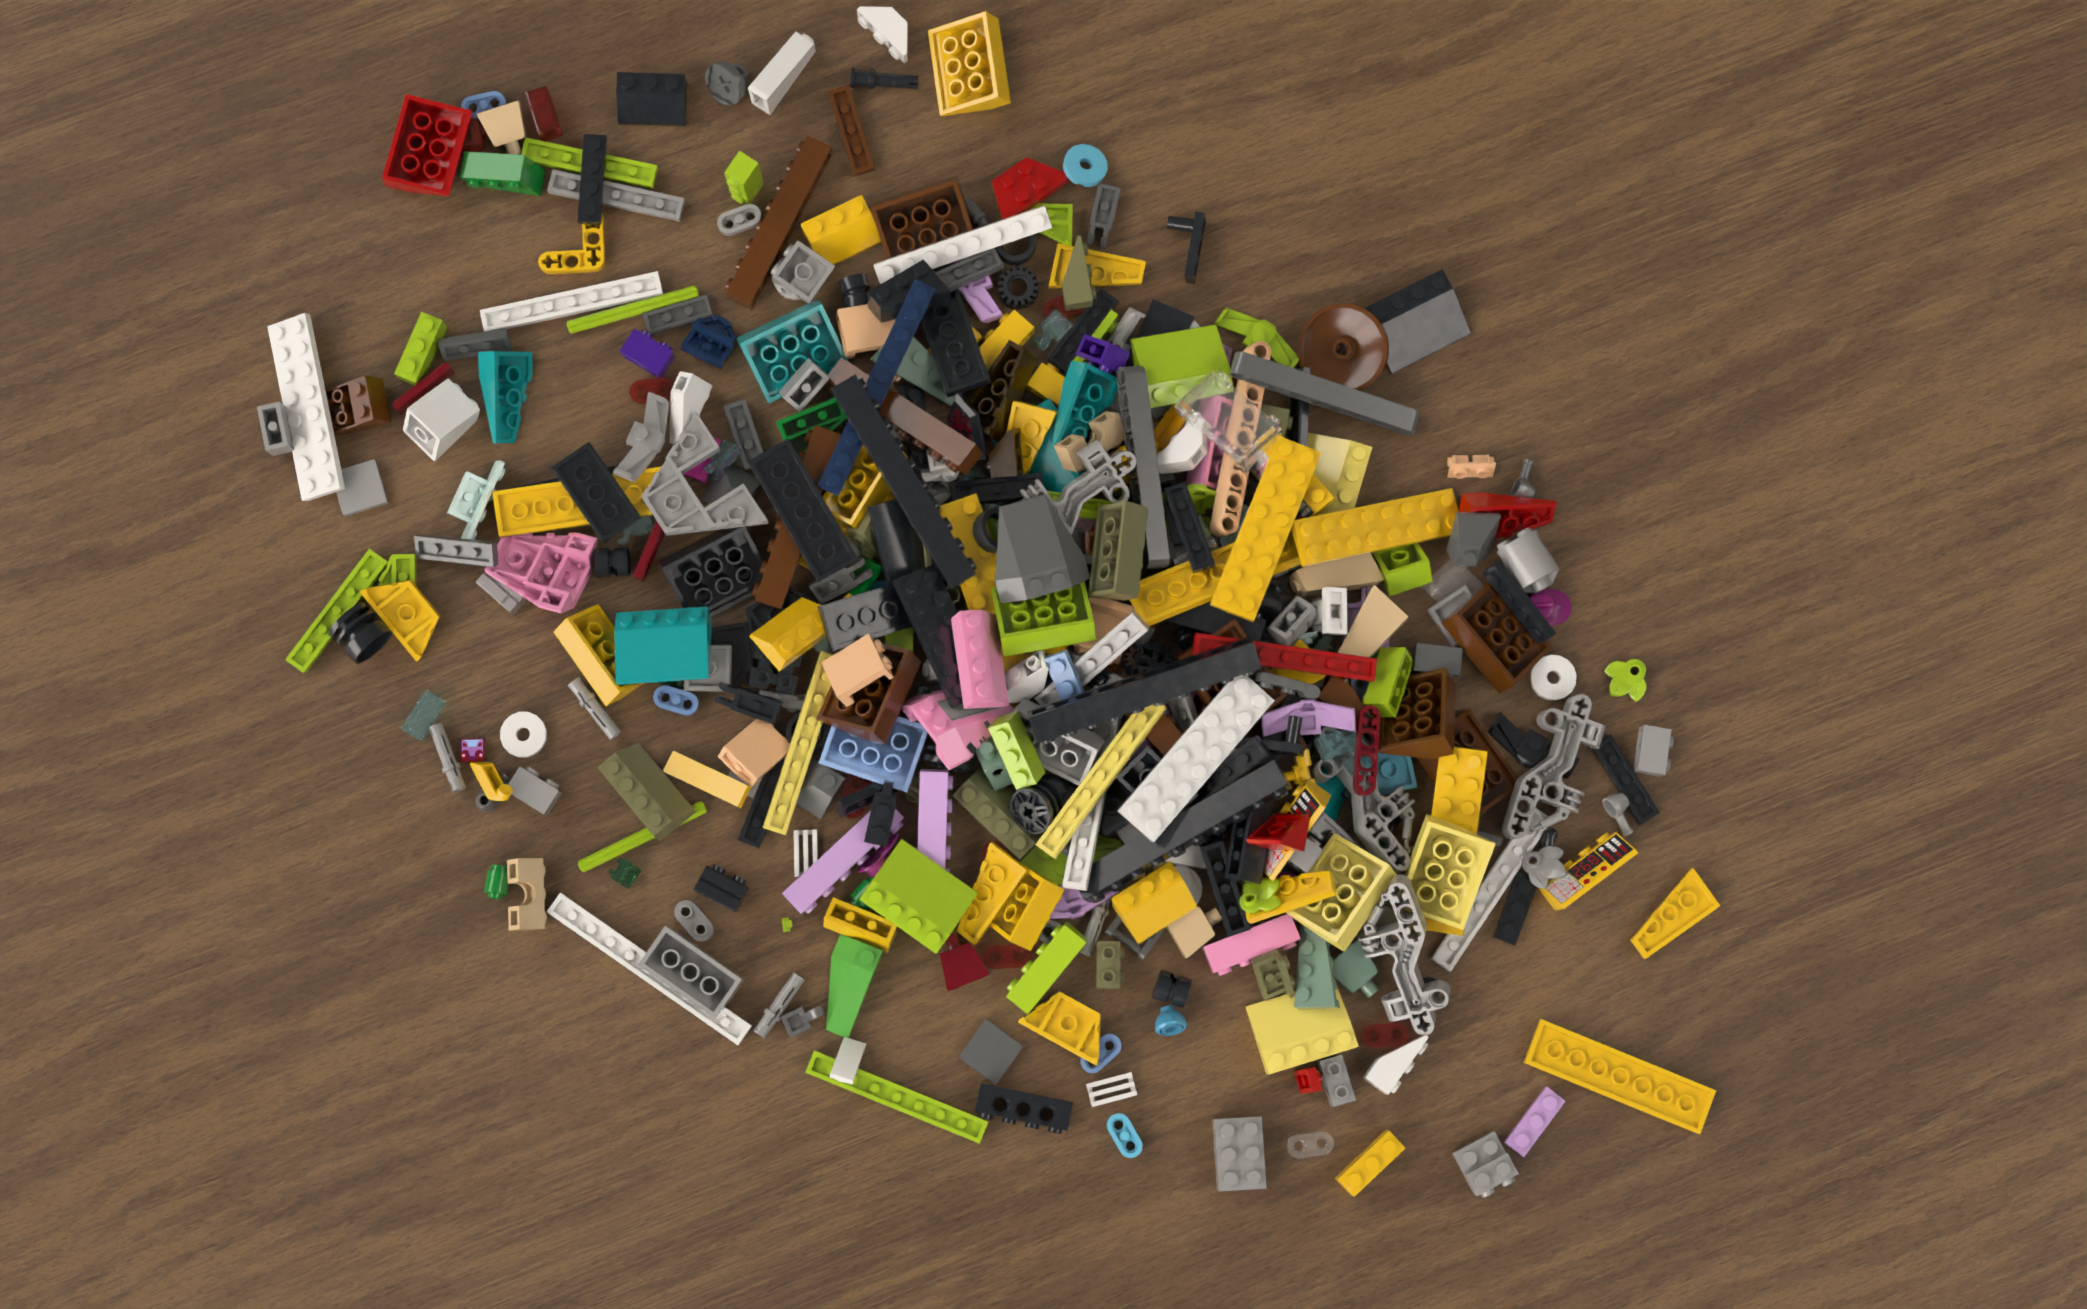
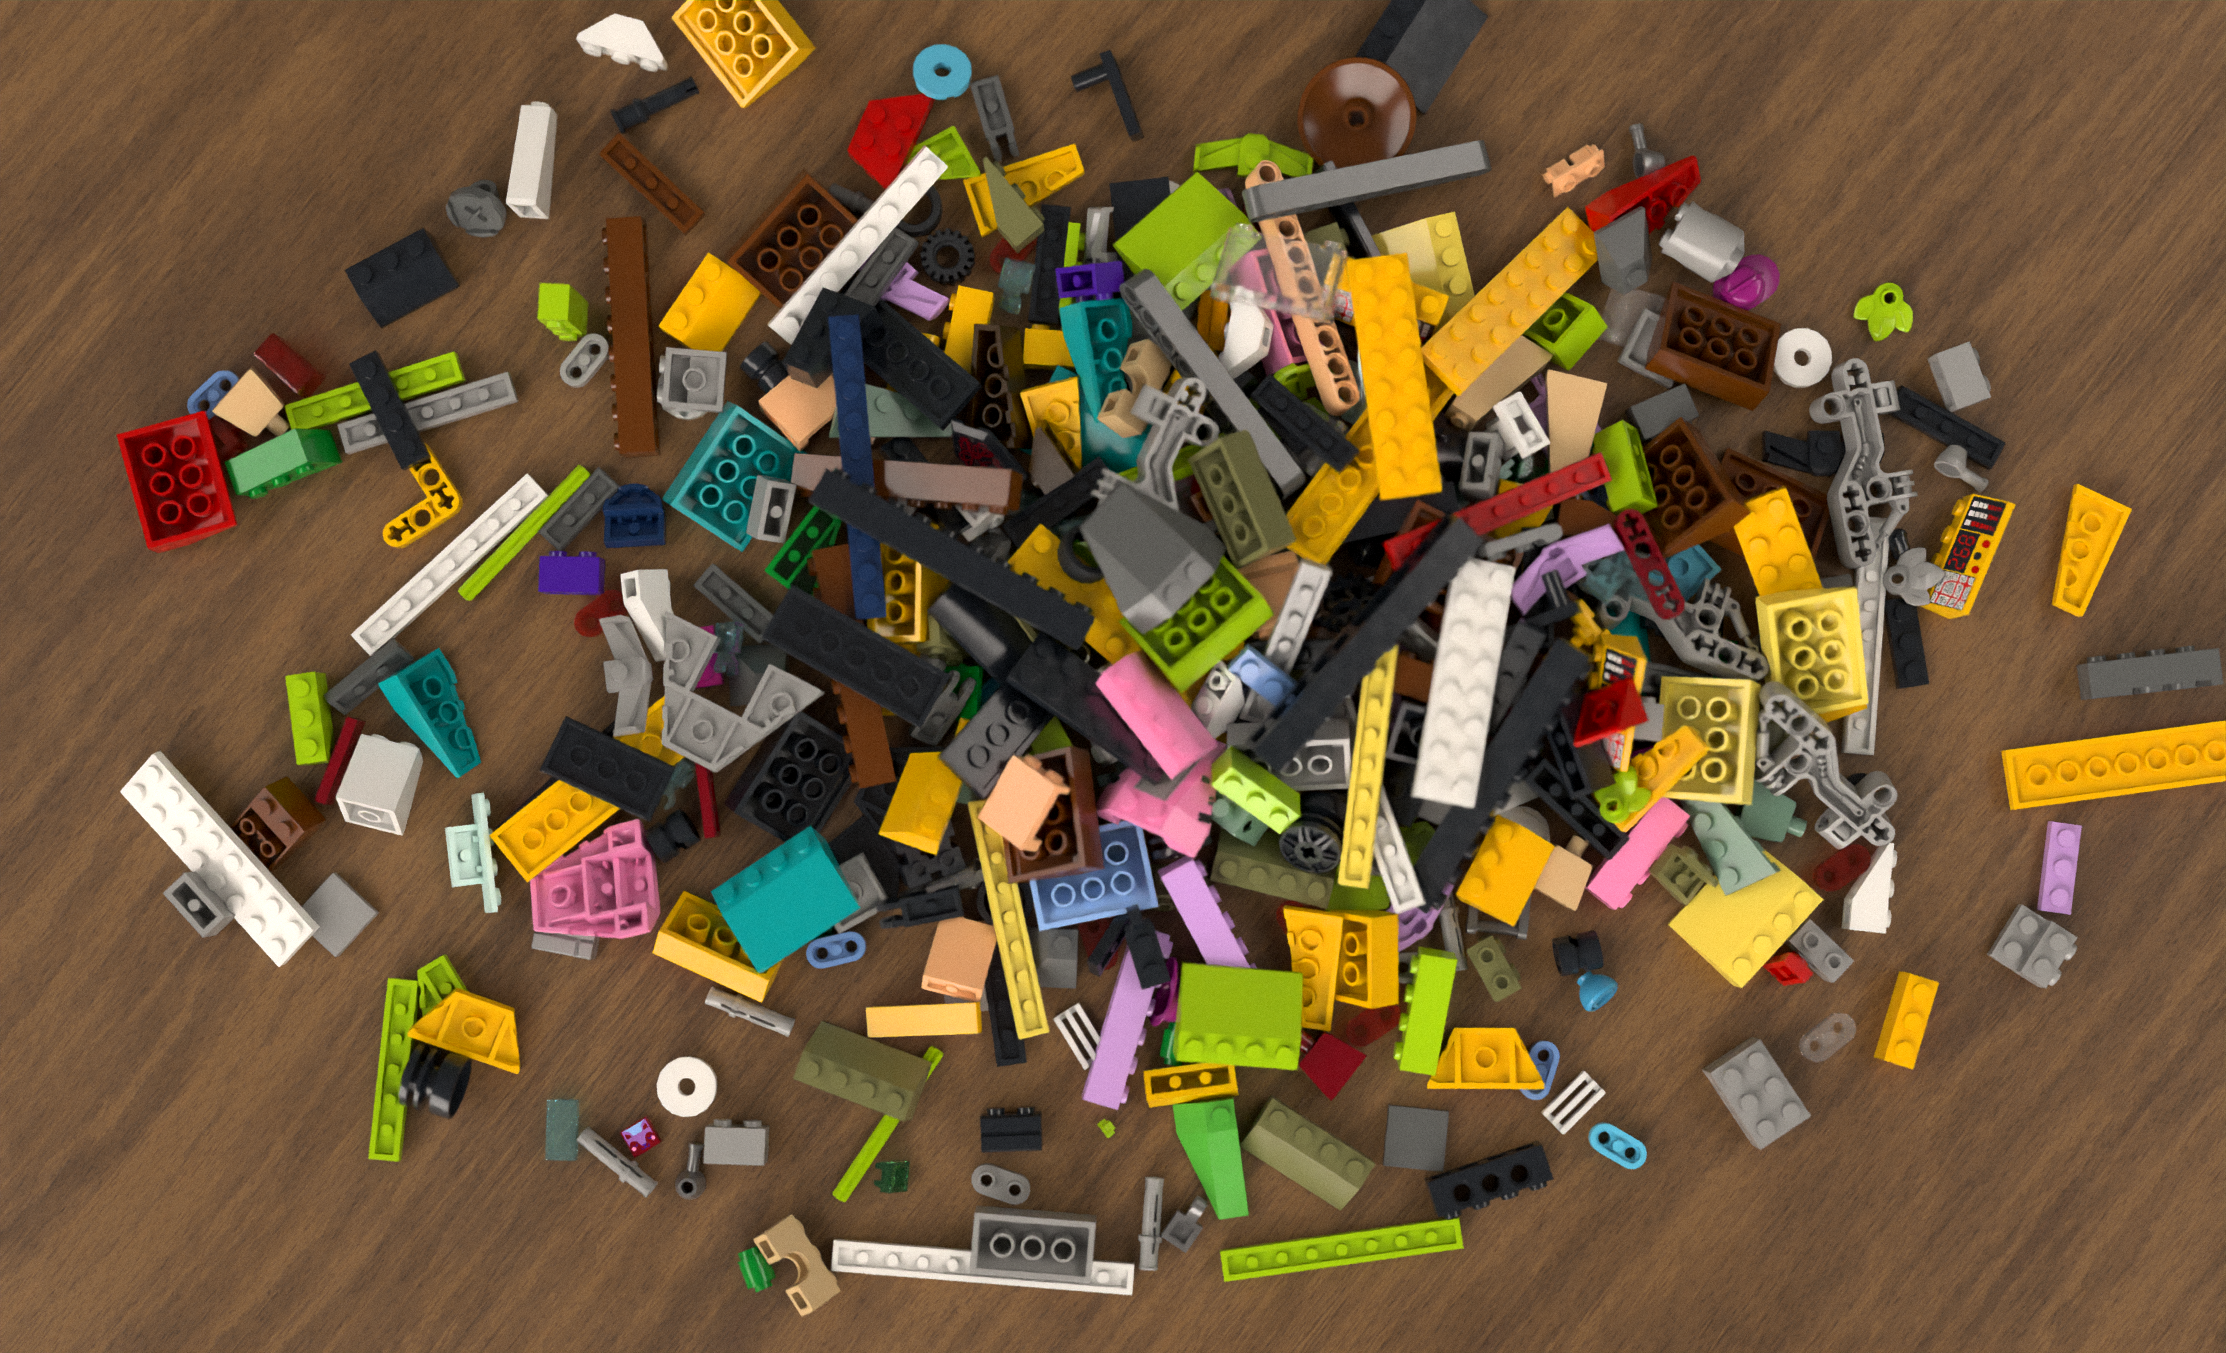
camera: 20 degrees left, 5 degrees up
(456, 550) = (488, 925): plate -> none
(491, 781) = (683, 1162): yellow piece -> none
(848, 1060) = (1265, 1241): white slope -> none
(910, 1018) = (1307, 1153): none -> olive slope
(1519, 602) = (1719, 295): black plate -> none
(1668, 1023) = (2149, 673): none -> dark grey wedge

